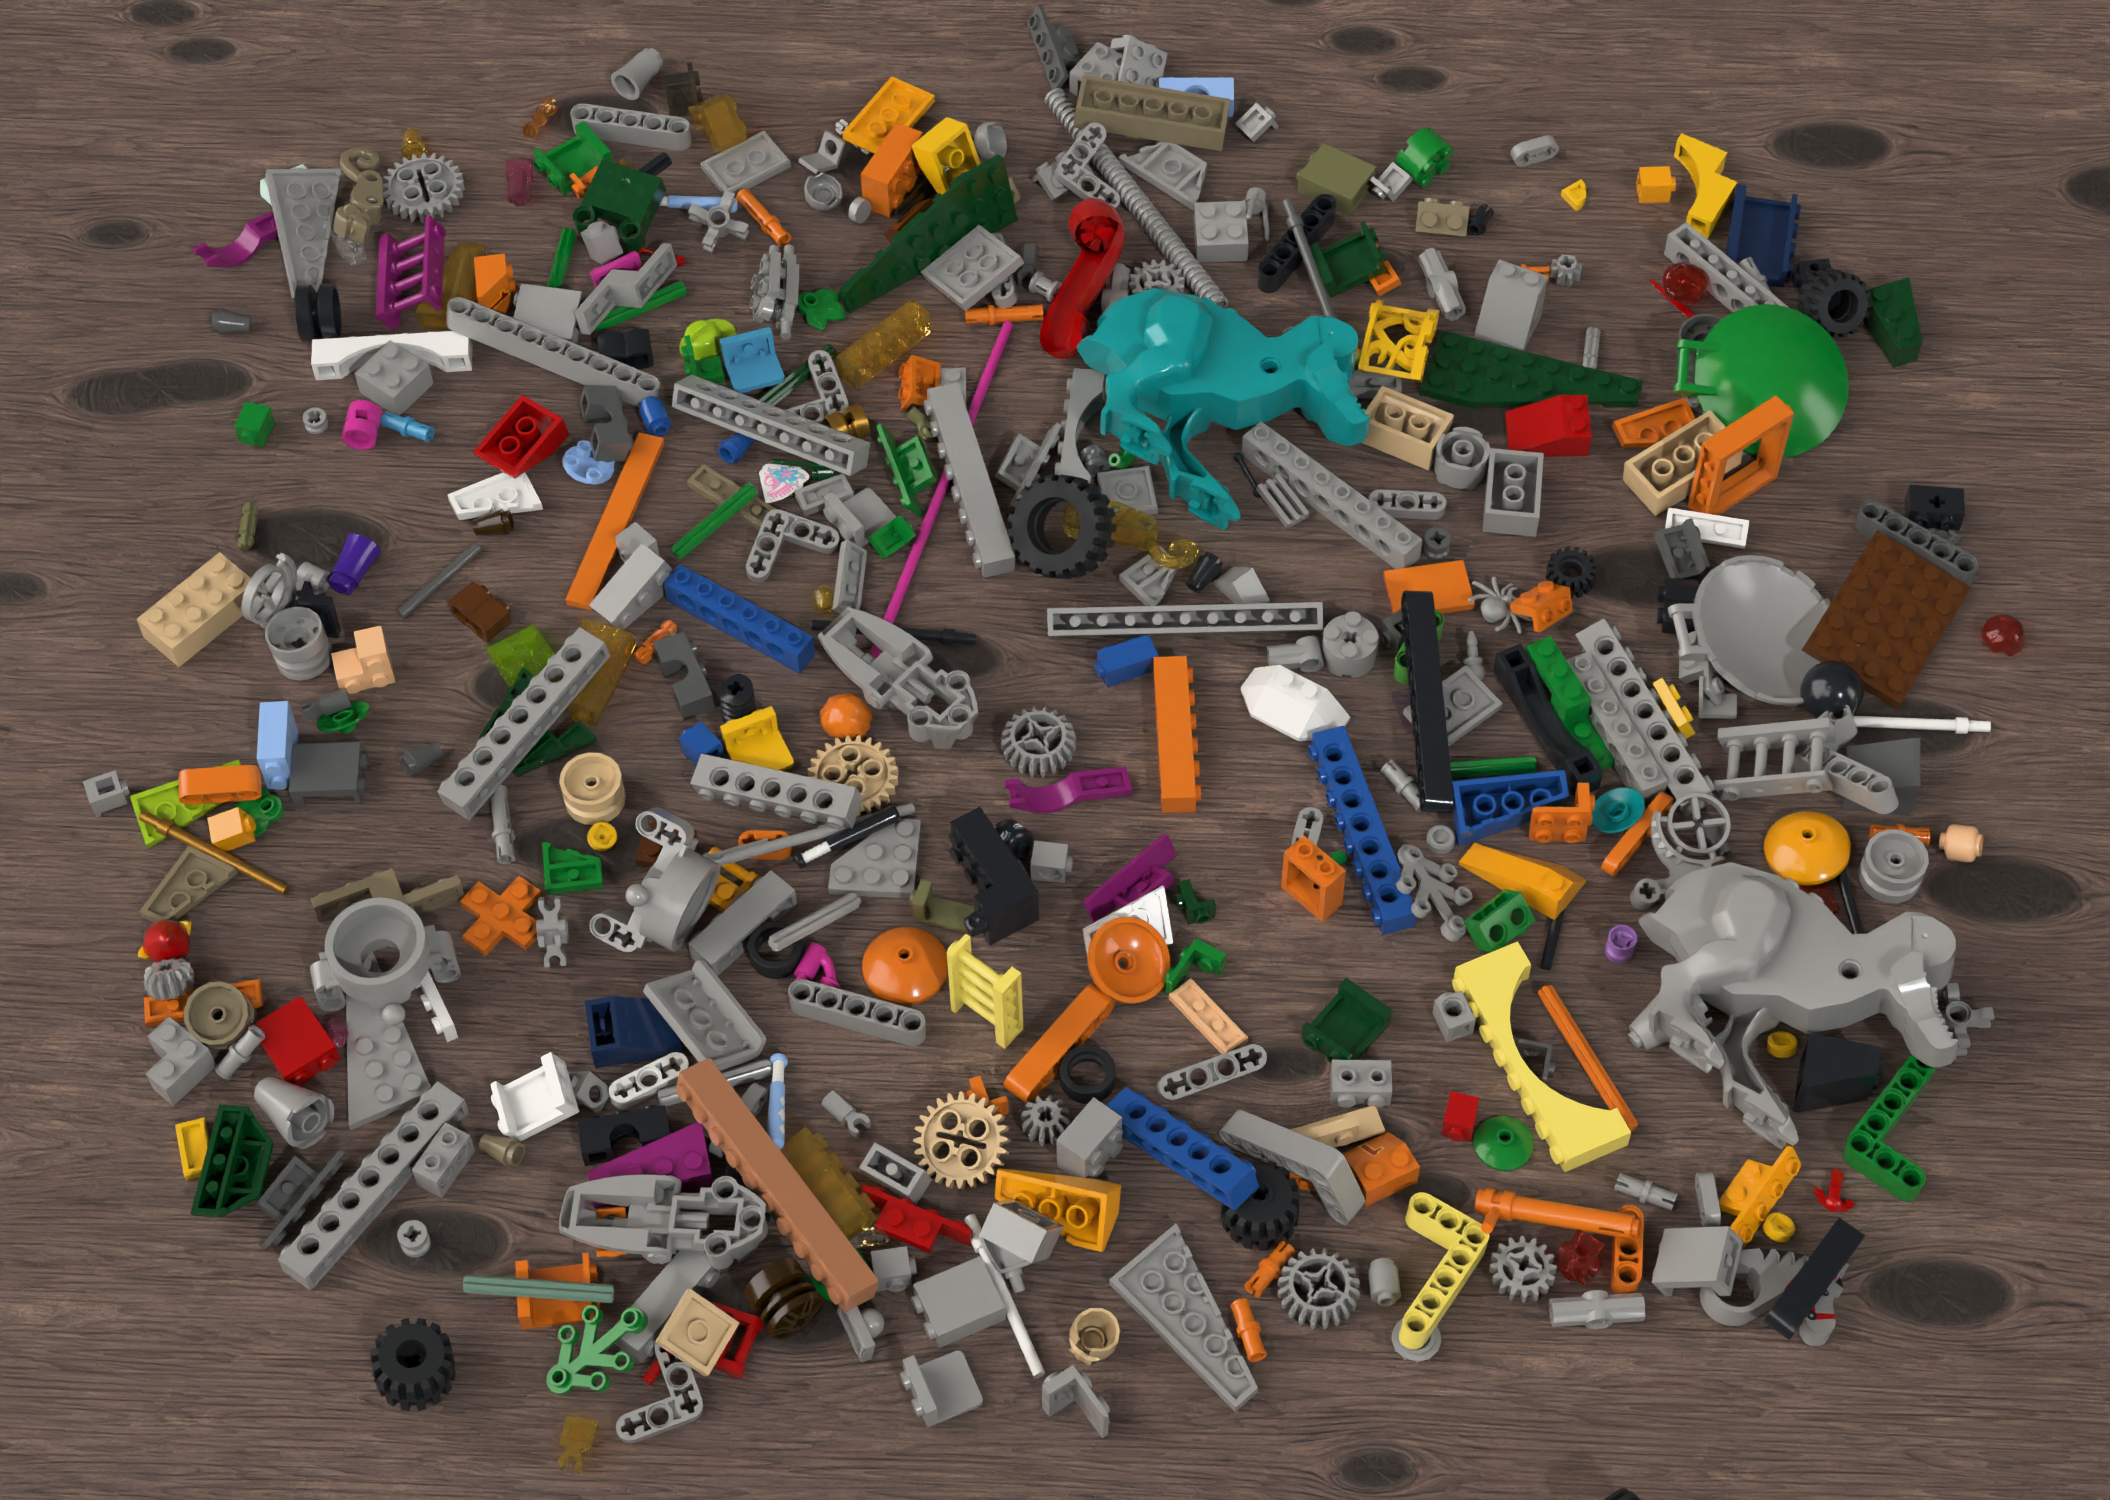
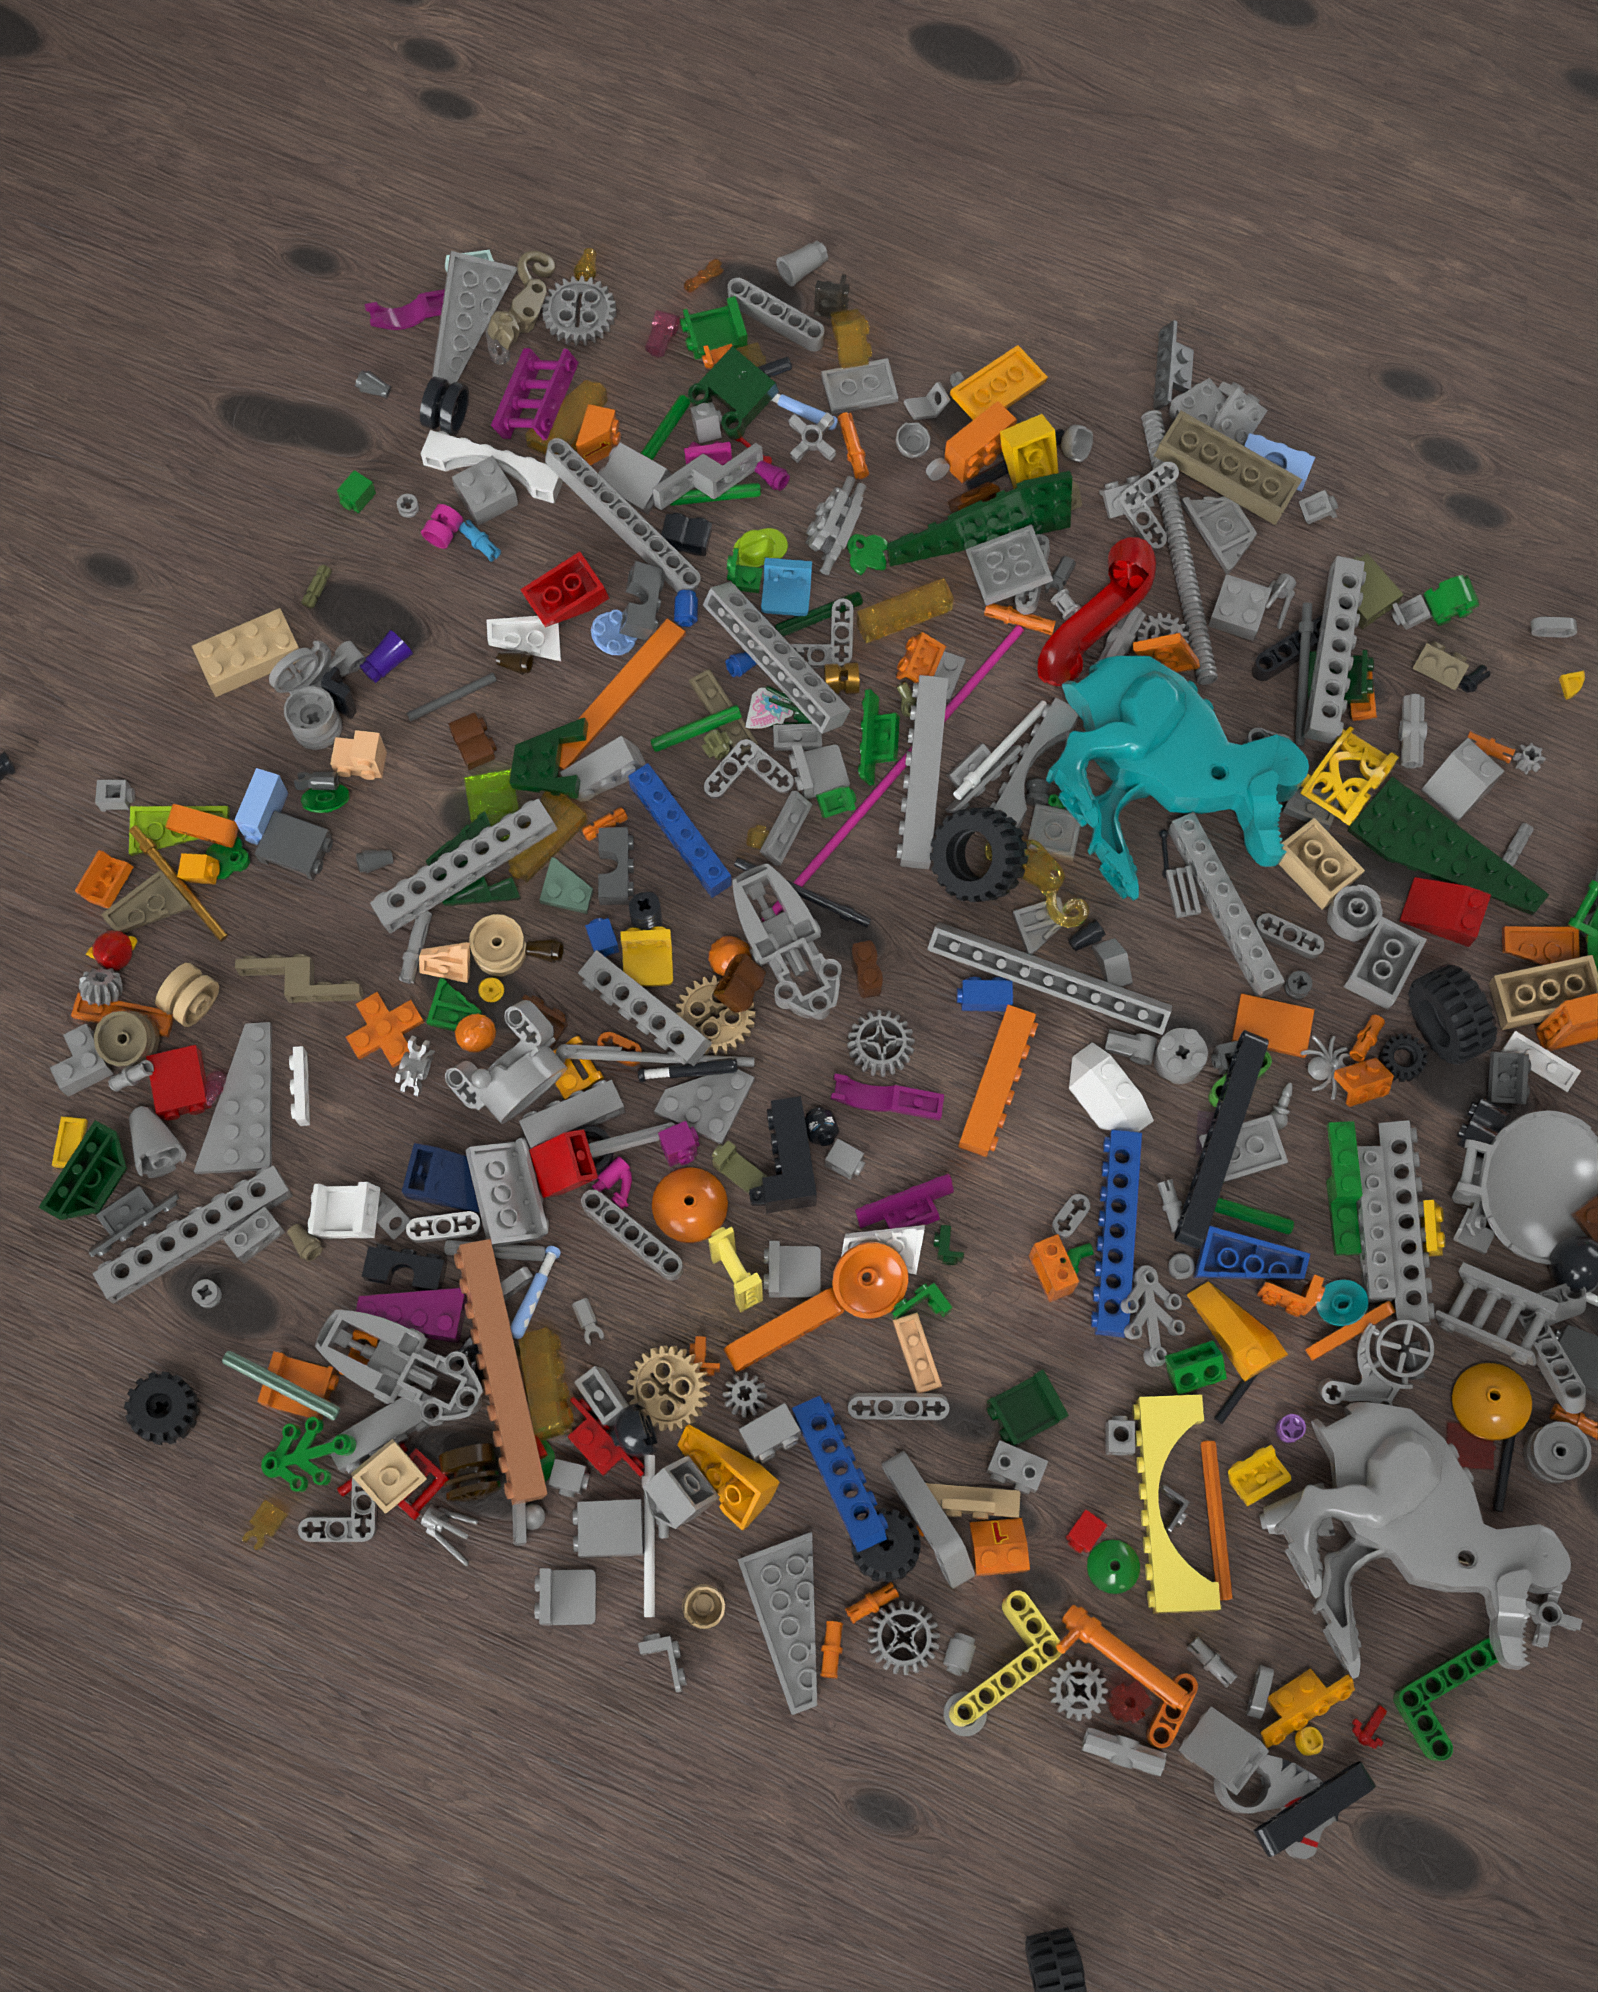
camera: 20 degrees right, 15 degrees up
(128, 877) = (103, 879): none -> orange bracket
(271, 950) = (187, 994): none -> tan wheel
(373, 926) = (260, 1011): light grey piece -> none
(543, 823) = (446, 962): none -> light nougat wing
(562, 604) = (538, 761): none -> dark green wing
(603, 881) = (475, 1033): none -> orange piece
(631, 539) = (622, 724): light grey brick -> none
(641, 716) = (565, 889): none -> sand green wing
(644, 778) = (548, 950): none -> dark brown cone
(692, 269) = (774, 476): none -> magenta cone
(743, 527) = (717, 744): none -> olive gear
(755, 963) = (563, 1163): none -> red brick
(767, 1365) = (436, 1520): none -> light grey plant
(868, 730) = (739, 983): none -> reddish brown brick
(869, 904) = (679, 1144): none -> magenta brick
(945, 1189) = (634, 1431): none -> black cylinder
(993, 678) = (865, 966): none -> reddish brown brick
(1025, 466) = (974, 778): none -> white bar
(1045, 985) = (792, 1271): none -> light grey bracket
(1091, 1054) = (799, 1347): black tyre -> none
(1169, 276) = (1170, 651): none -> orange tile
(1332, 233) = (1317, 725): none -> light grey brick
(1523, 686) = (1321, 1228): black arch -> none
(1527, 566) = (1367, 1038): none -> orange pin
(1601, 506) = (1452, 1014): none -> black tyre
(1609, 998) = (1258, 1475): none -> yellow bracket
(1782, 1044) = (1386, 1576): yellow tile -> none
(1836, 1073) = (1418, 1625): black slope -> none

